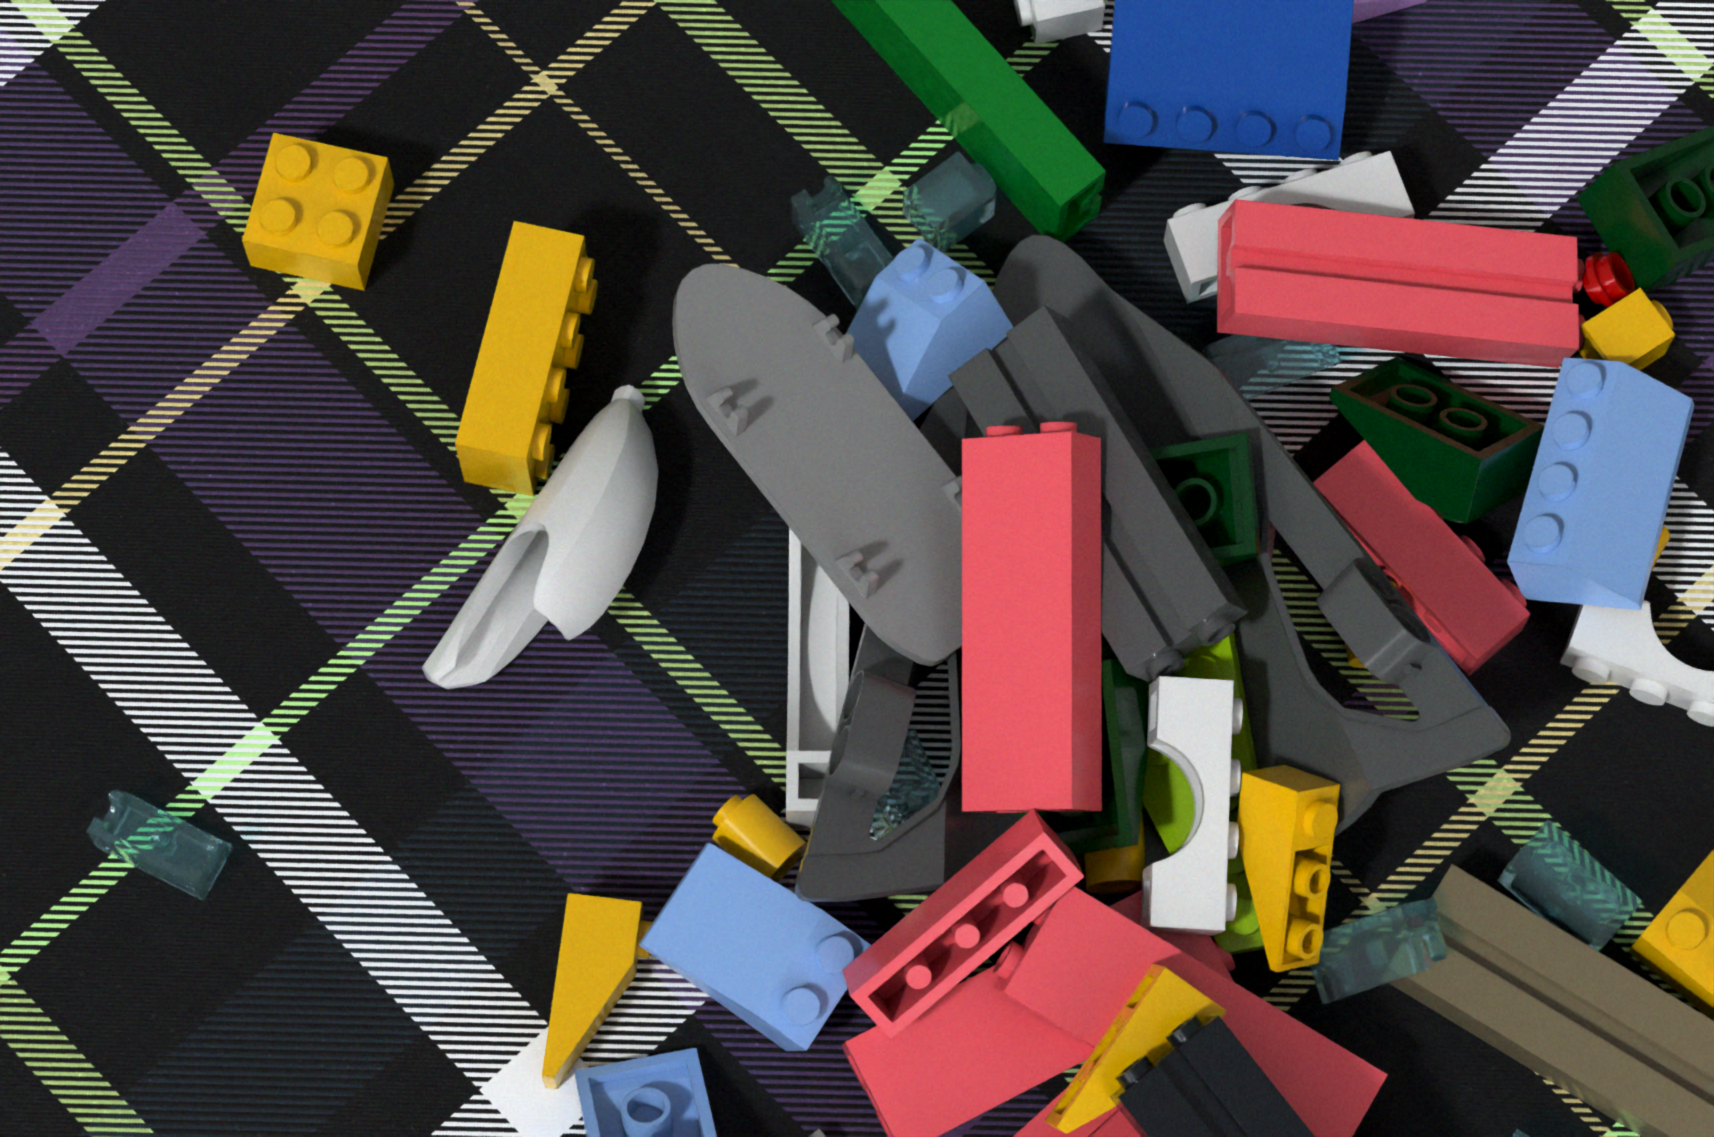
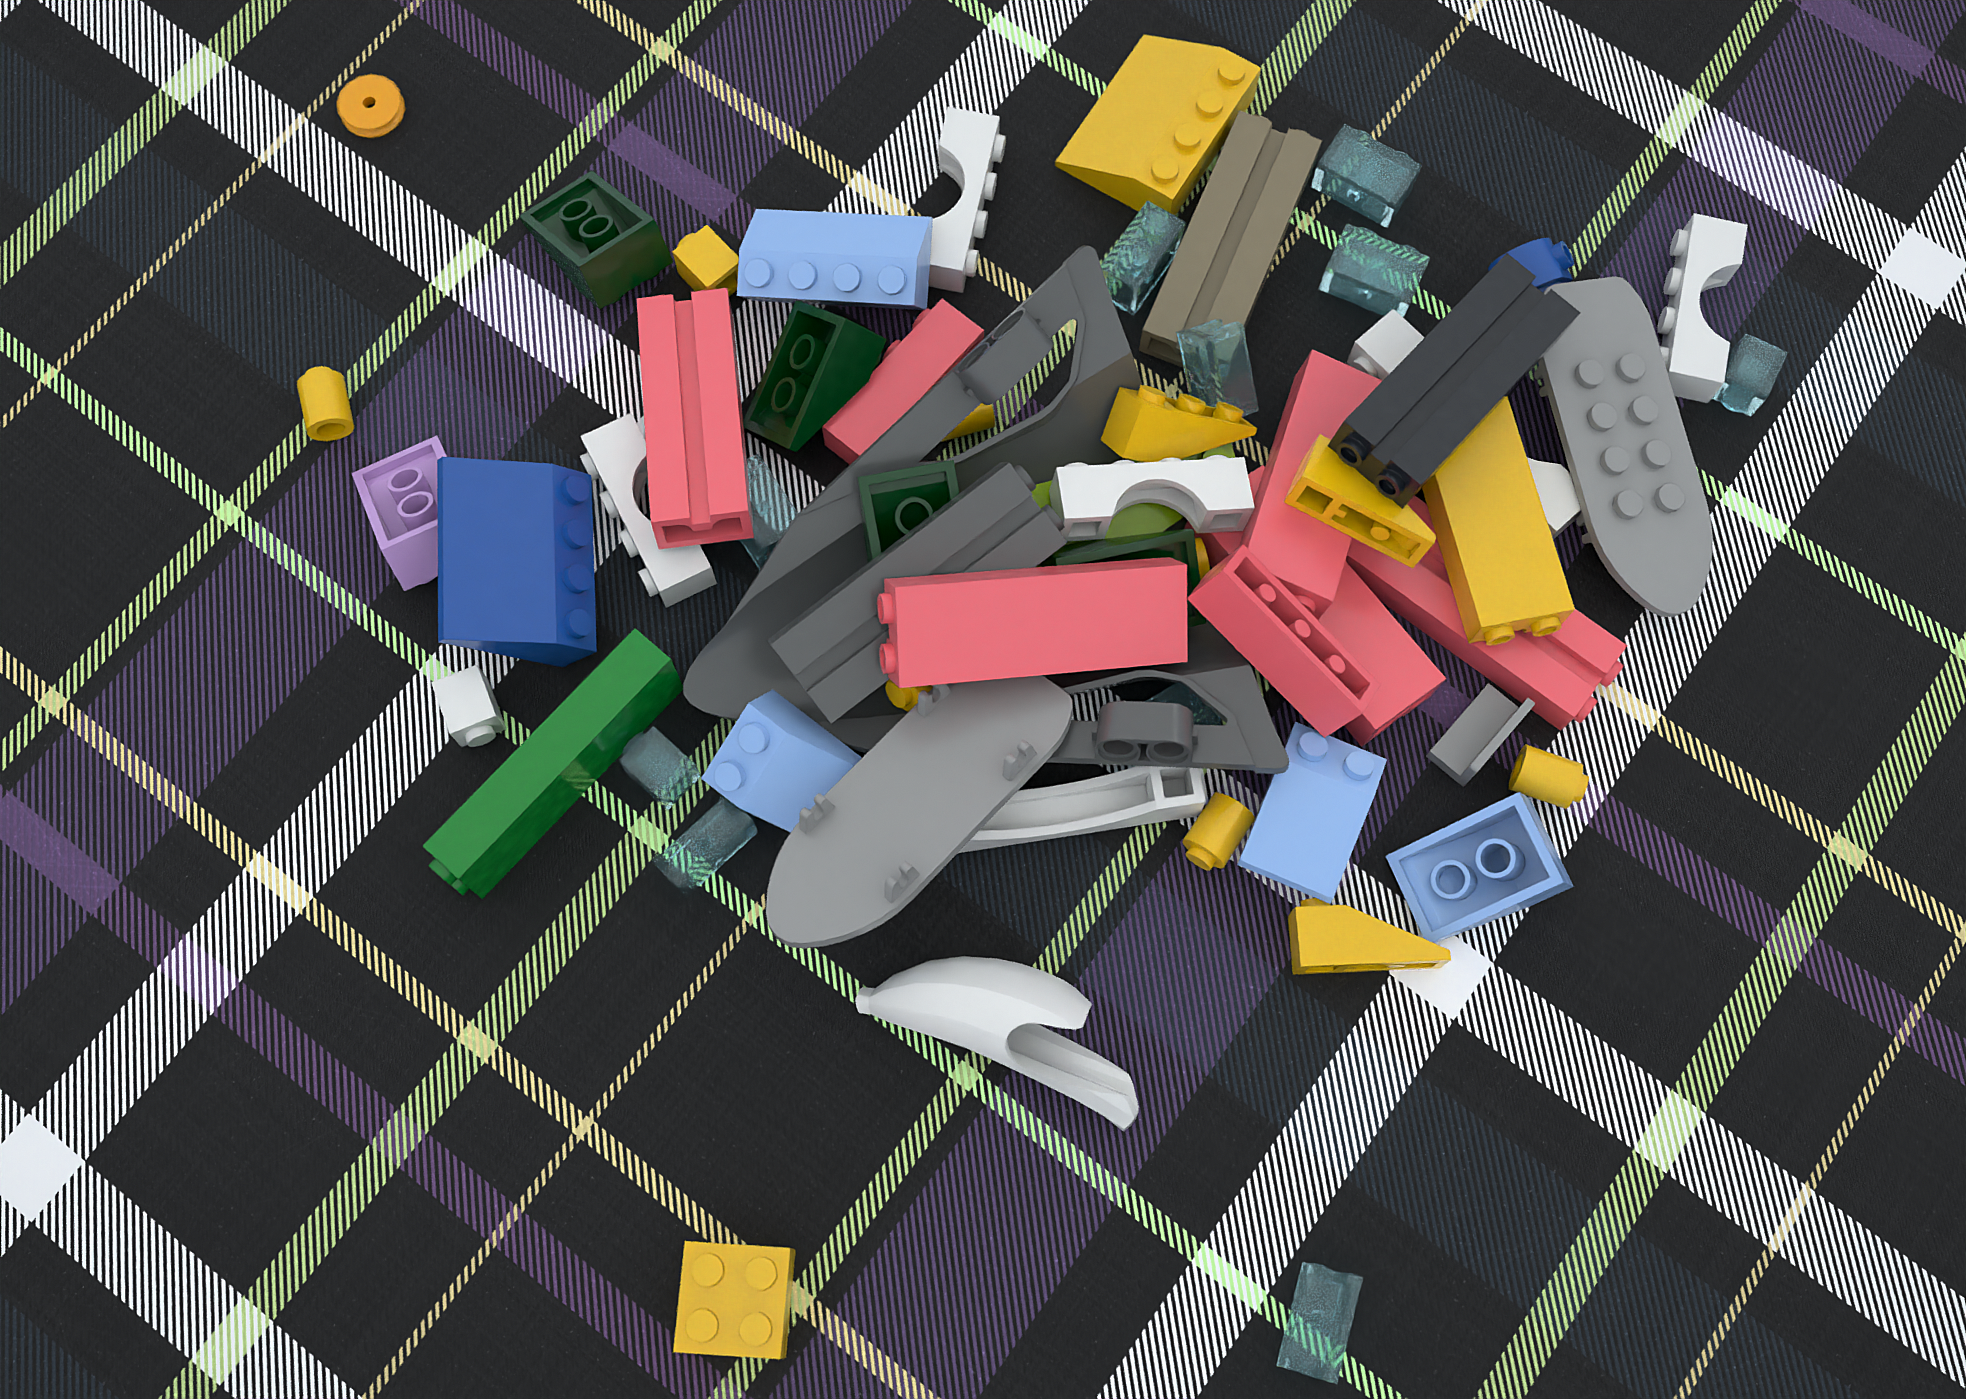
camera: 100 degrees left, 0 degrees up
(525, 359) = (850, 1084): yellow brick -> none
(1607, 278) = (666, 277): red plate -> none

